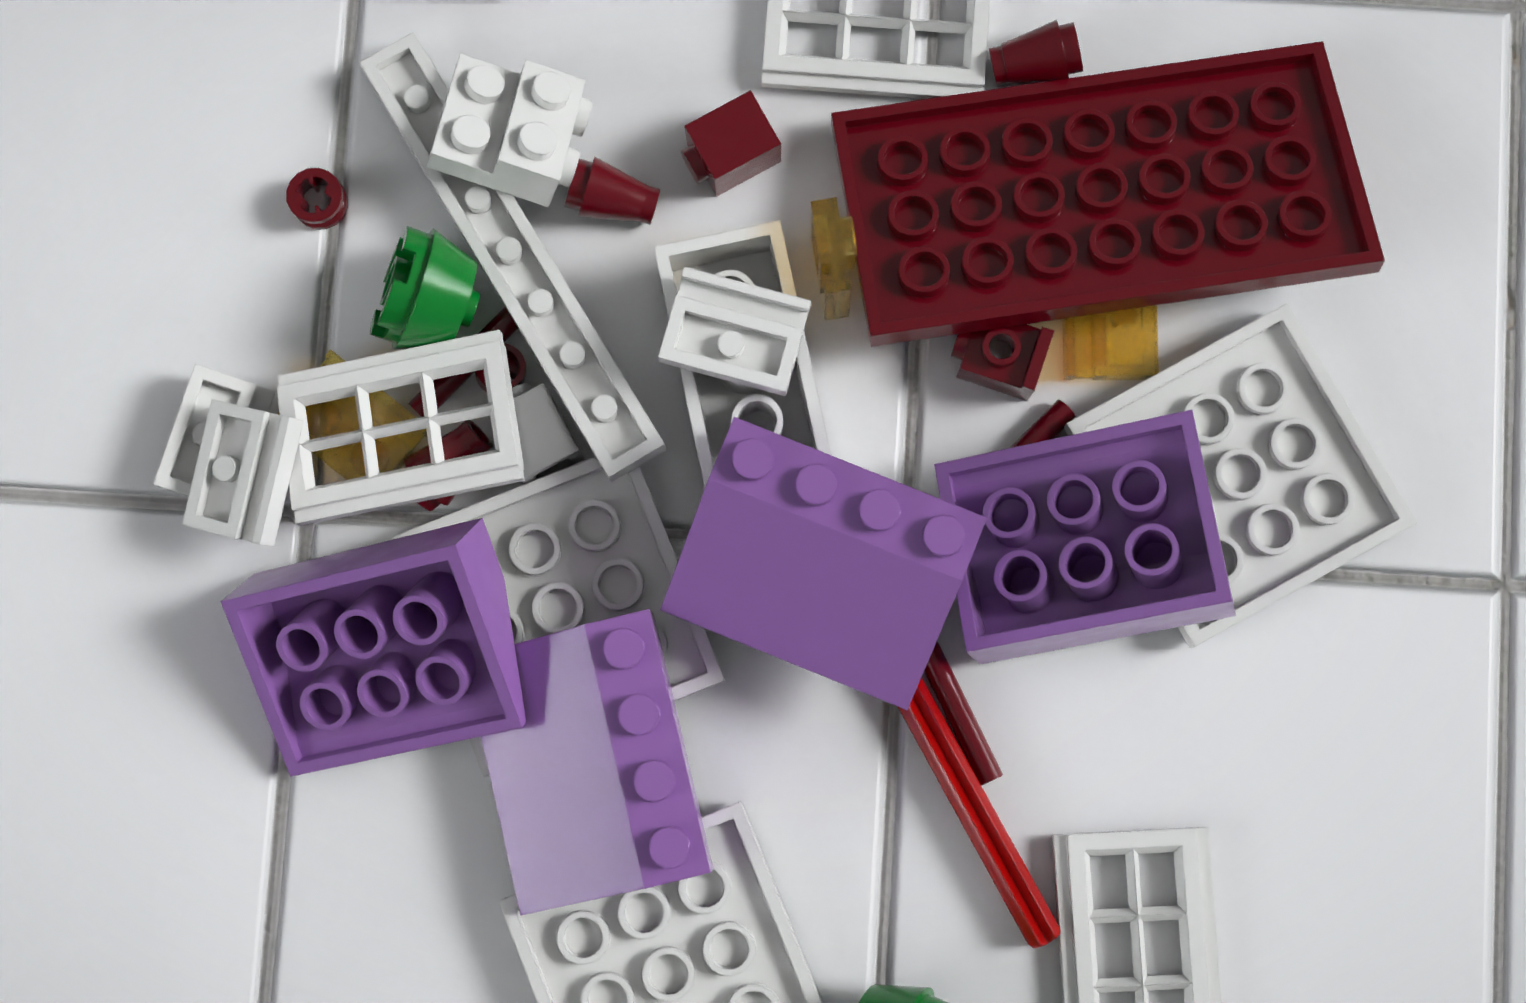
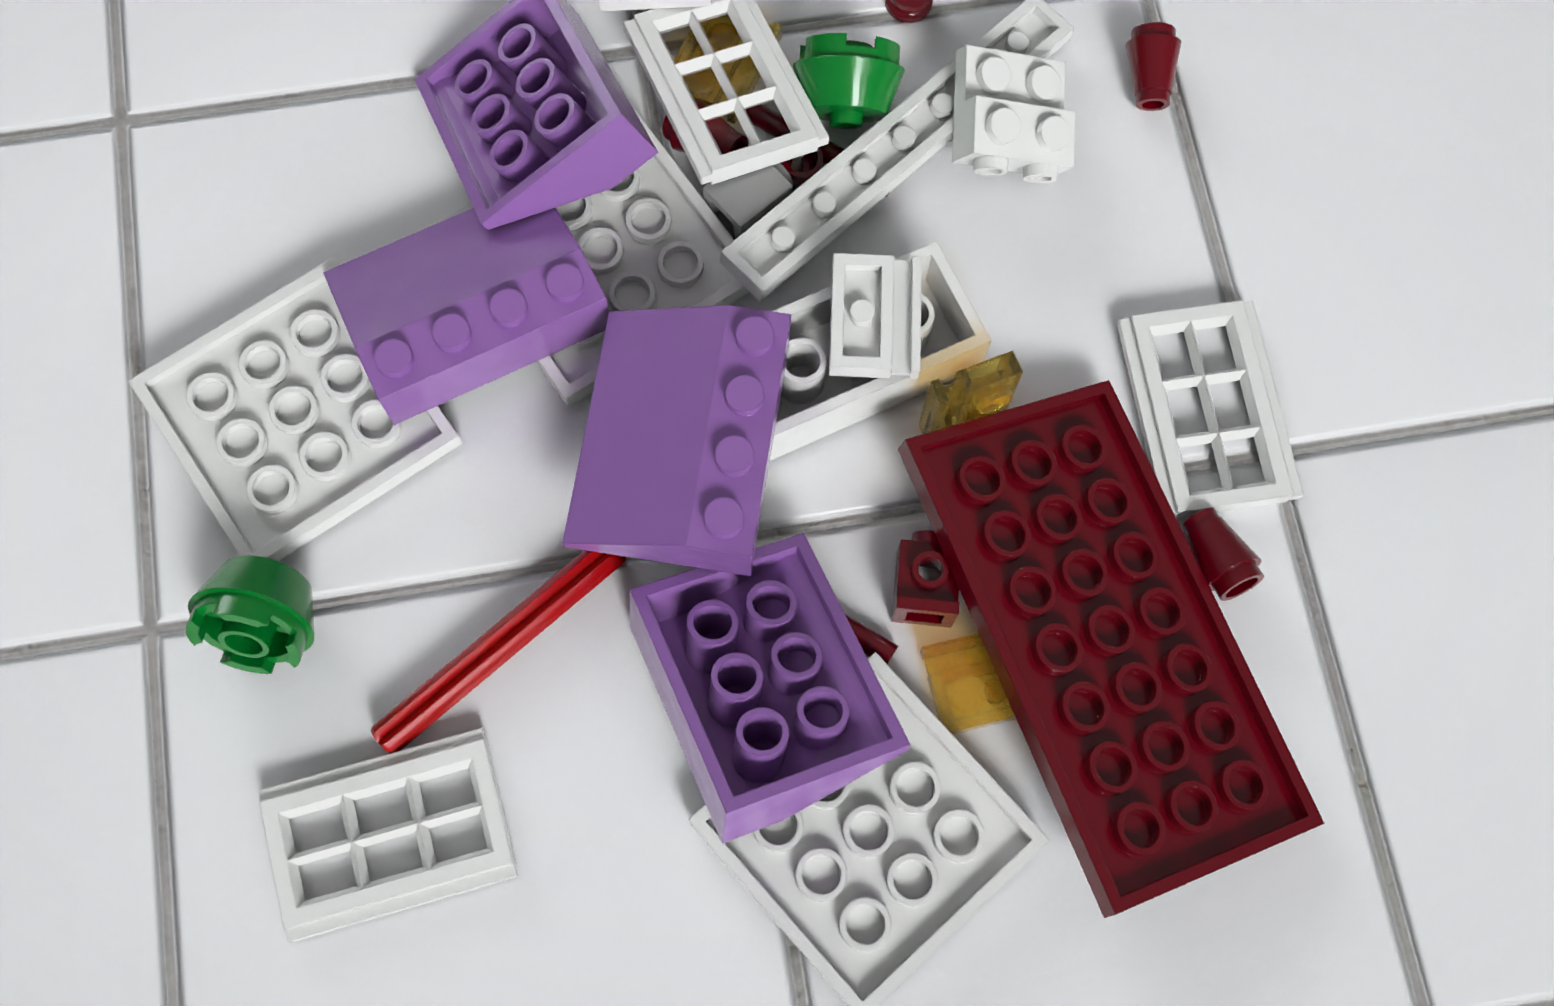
camera: 70 degrees right, 10 degrees down
(609, 193) = (980, 212): dark red cone -> none
(731, 144) = (1053, 302): dark red brick -> none
(961, 717) = (589, 611): dark red piece -> none

